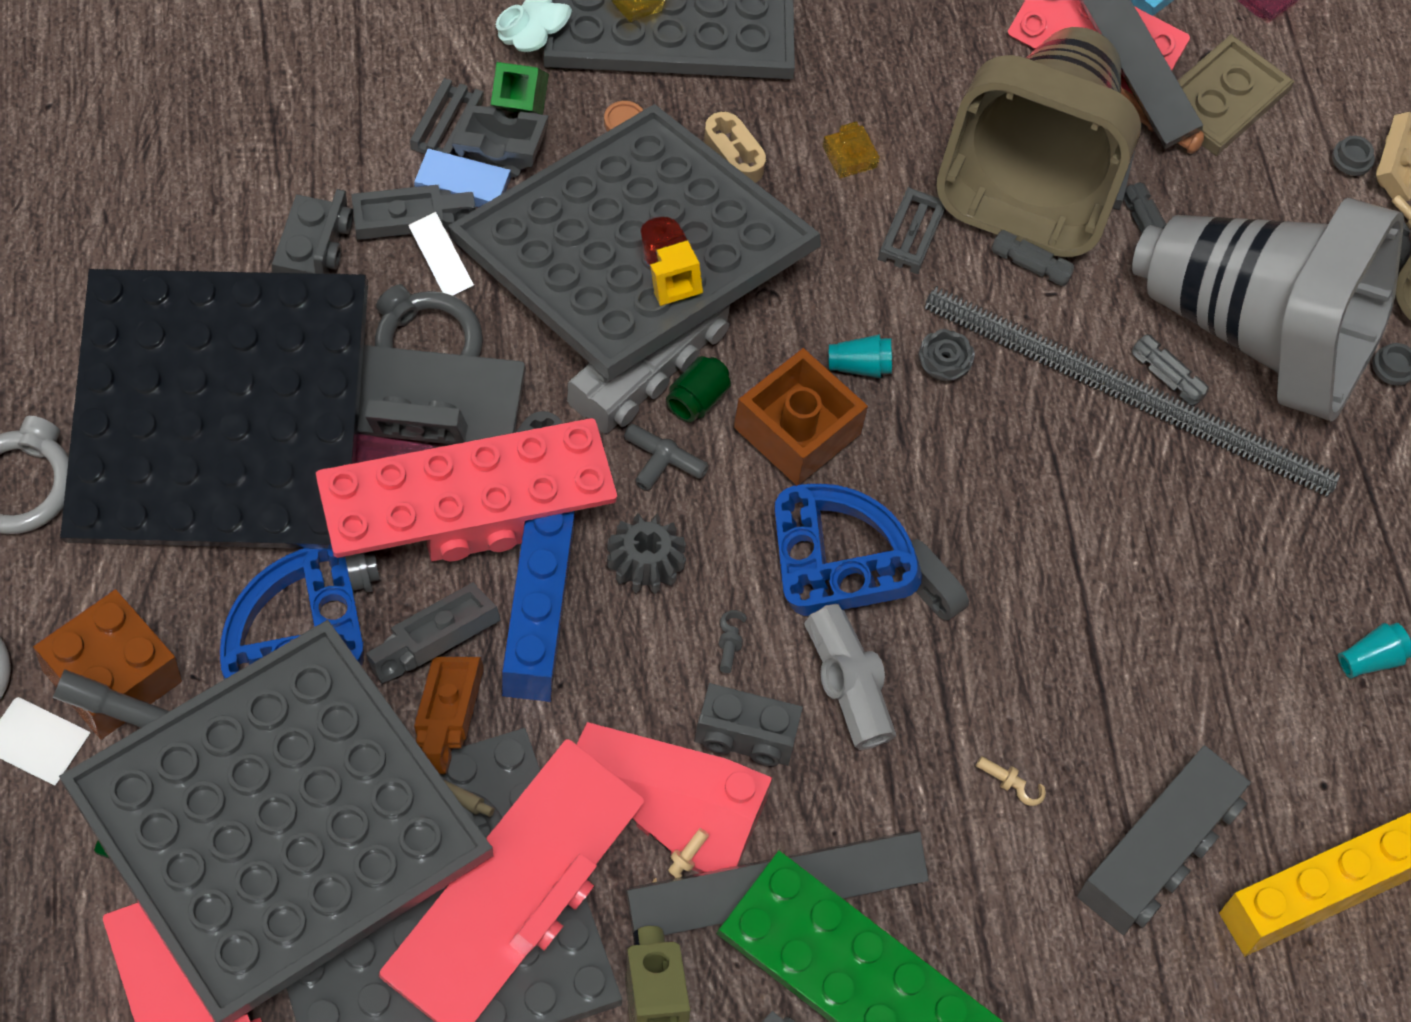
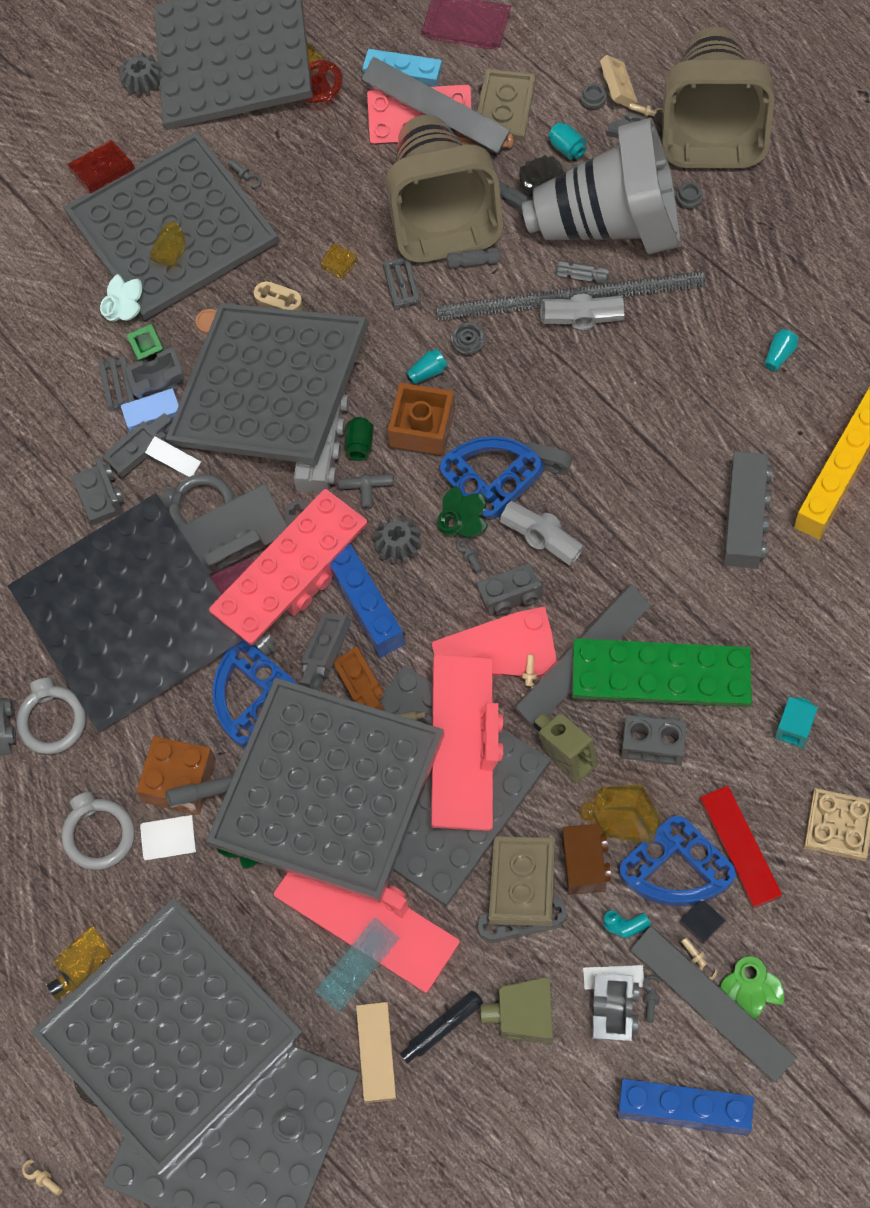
camera: 20 degrees left, 5 degrees up
(671, 260) = (302, 379): yellow leg -> none
(765, 581) = (465, 511): none -> dark green plate
(1010, 779) = (652, 530): tan hand -> none
(1130, 419) = (582, 311): none -> light grey piece
(1202, 198) = (538, 172): none -> clear smoke gear
(1274, 189) = (567, 141): none -> teal brick

